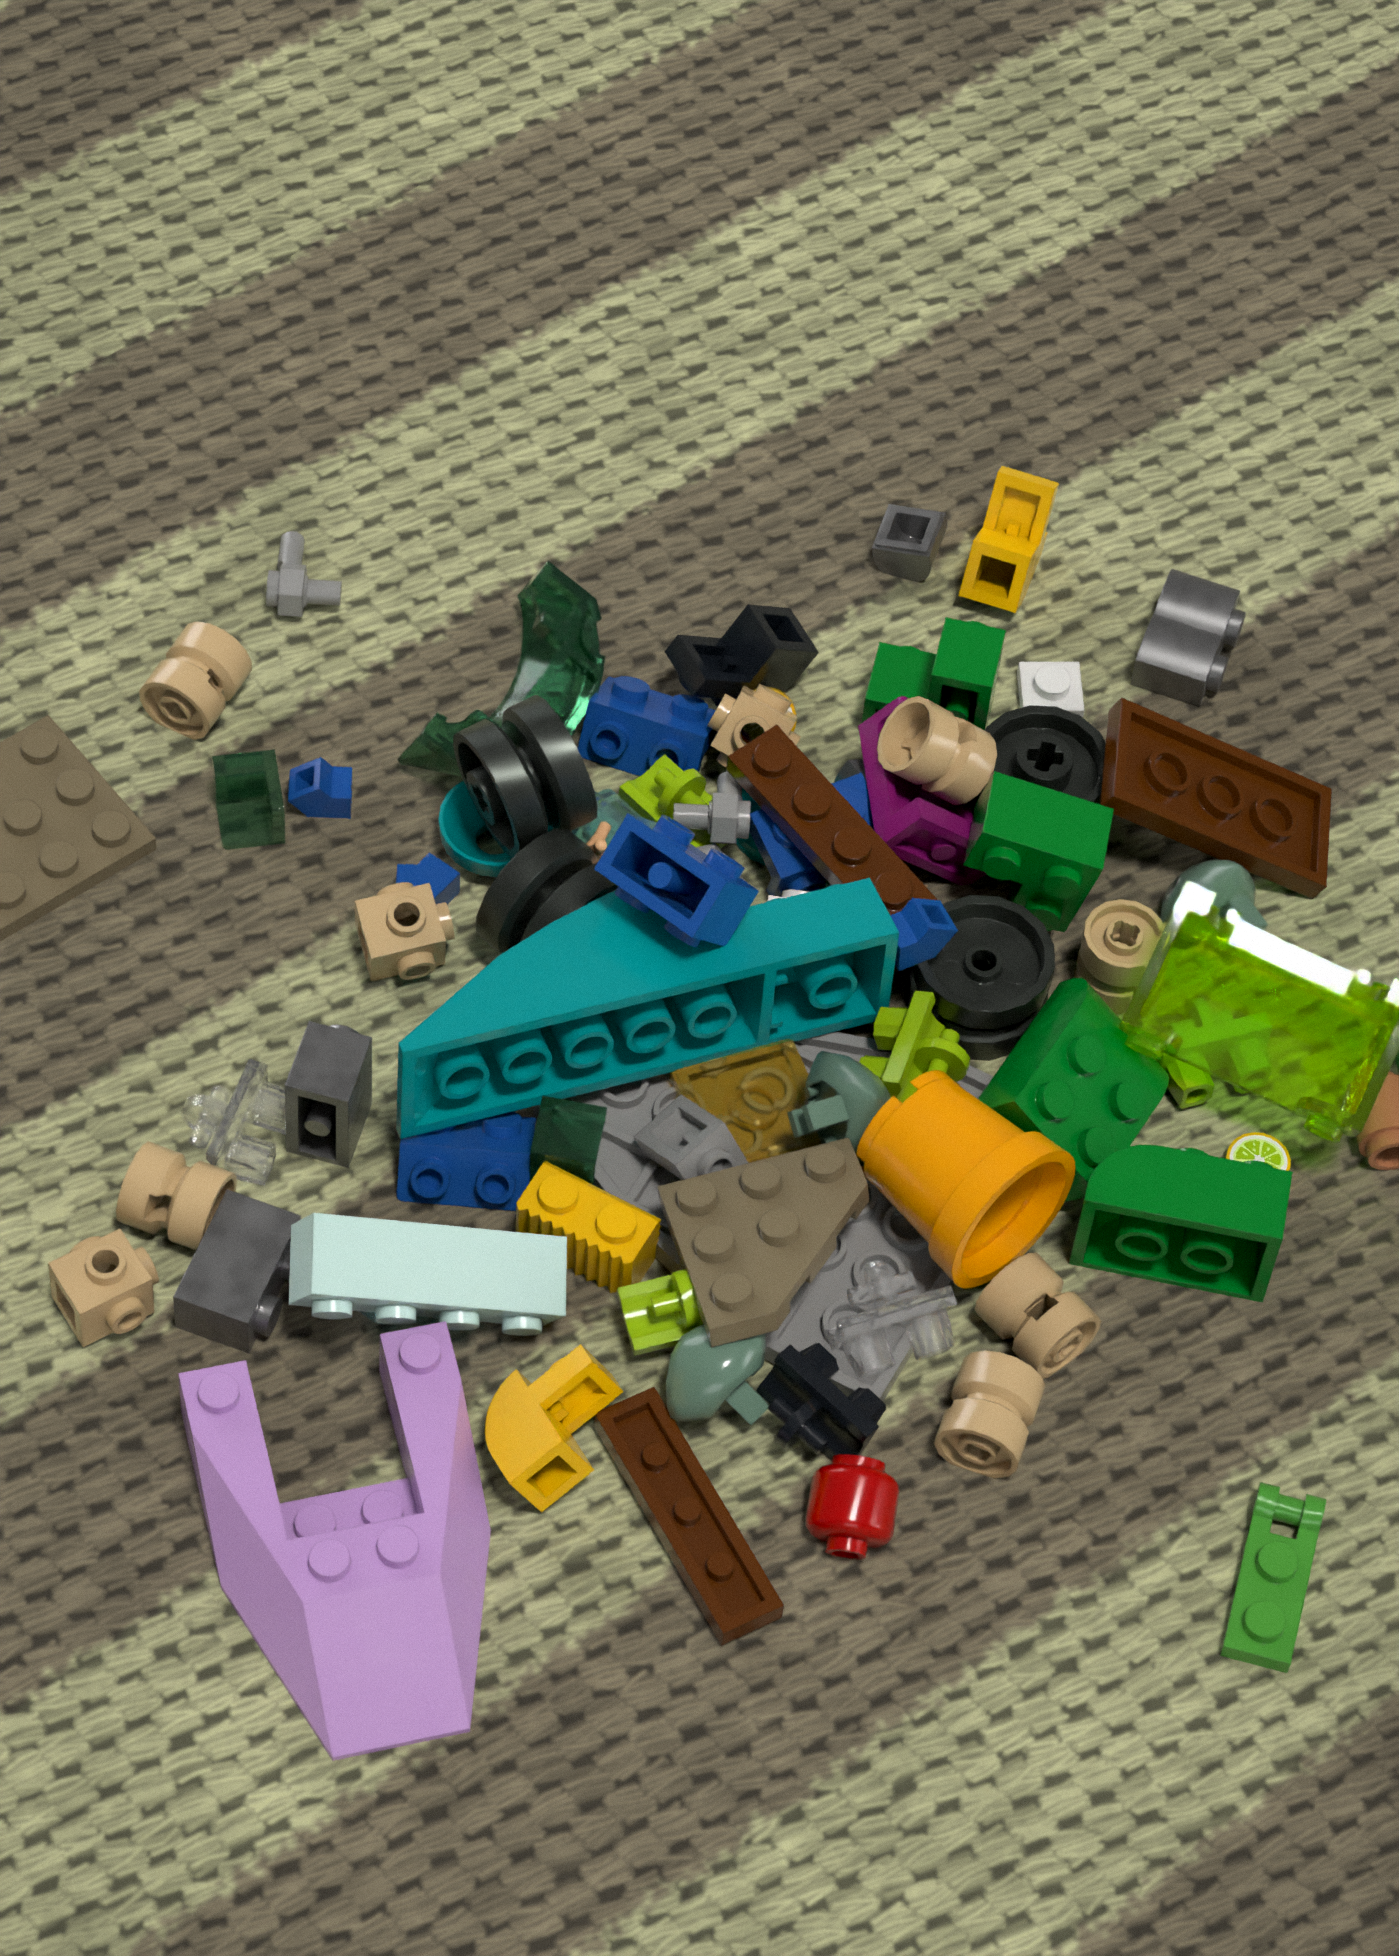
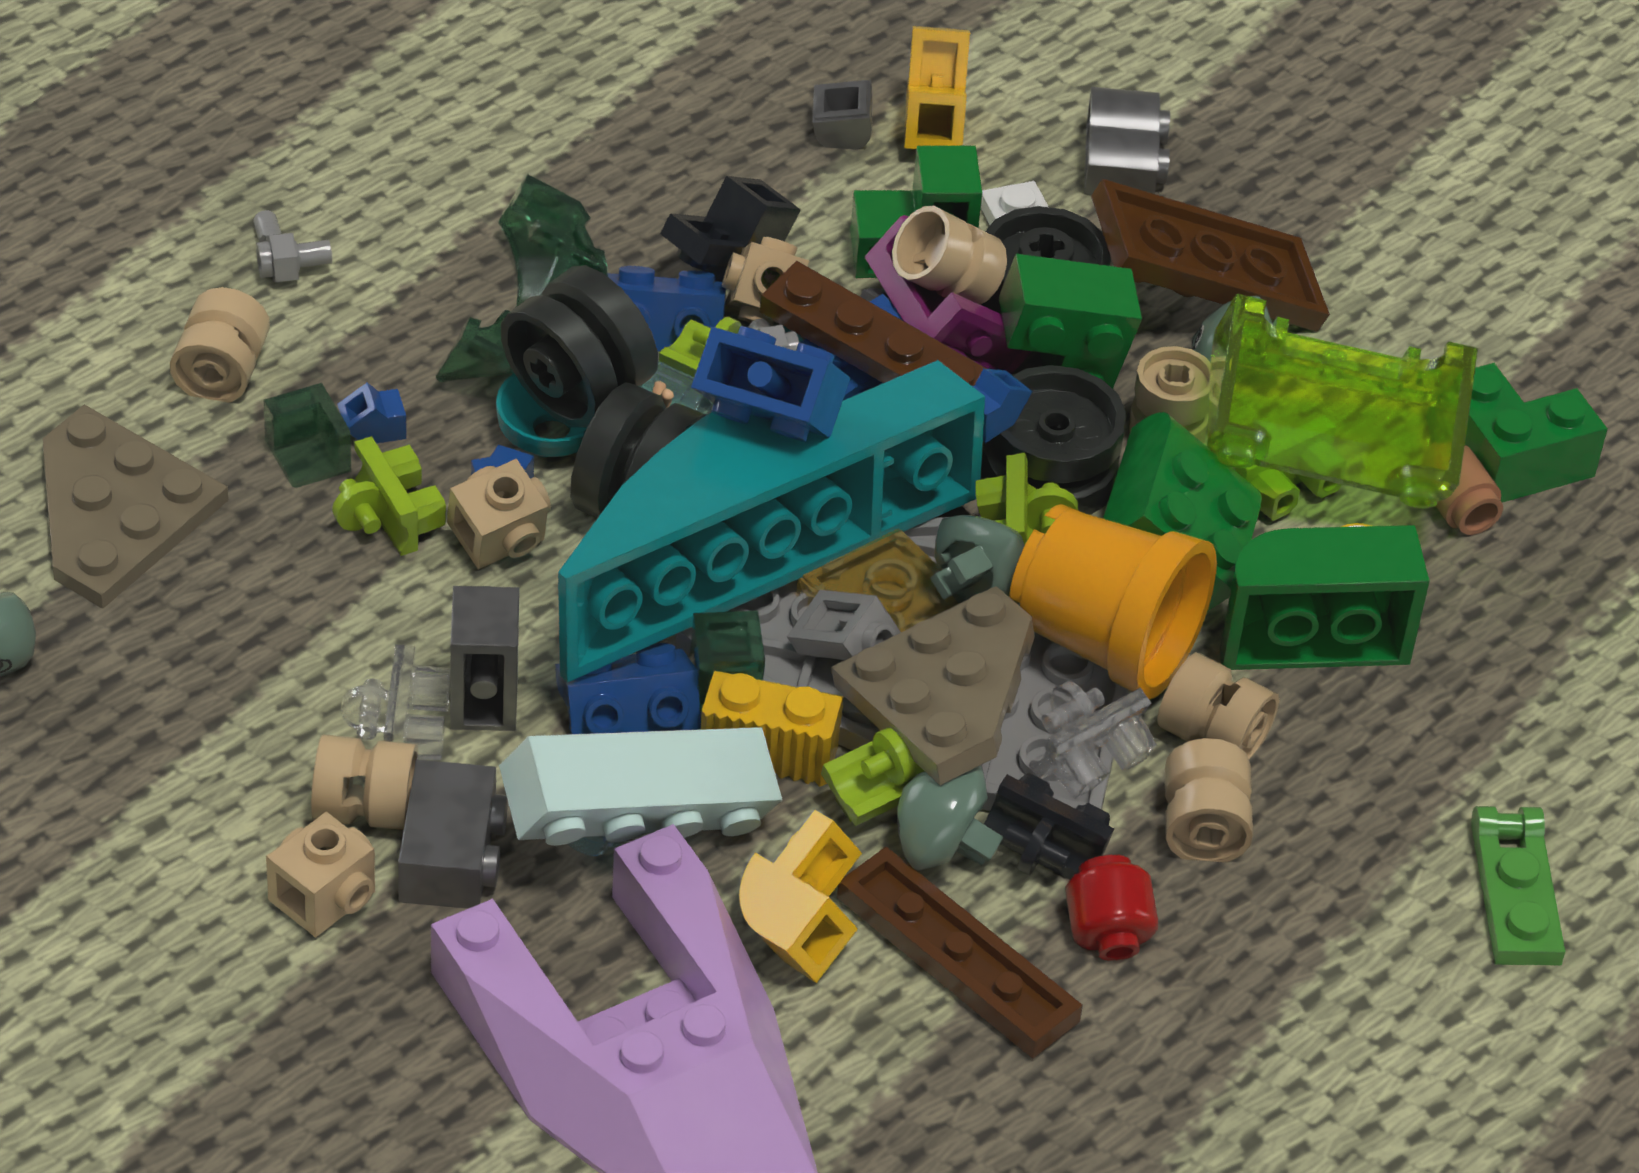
camera: 15 degrees left, 10 degrees down
(306, 861) = (381, 497): none -> lime hips

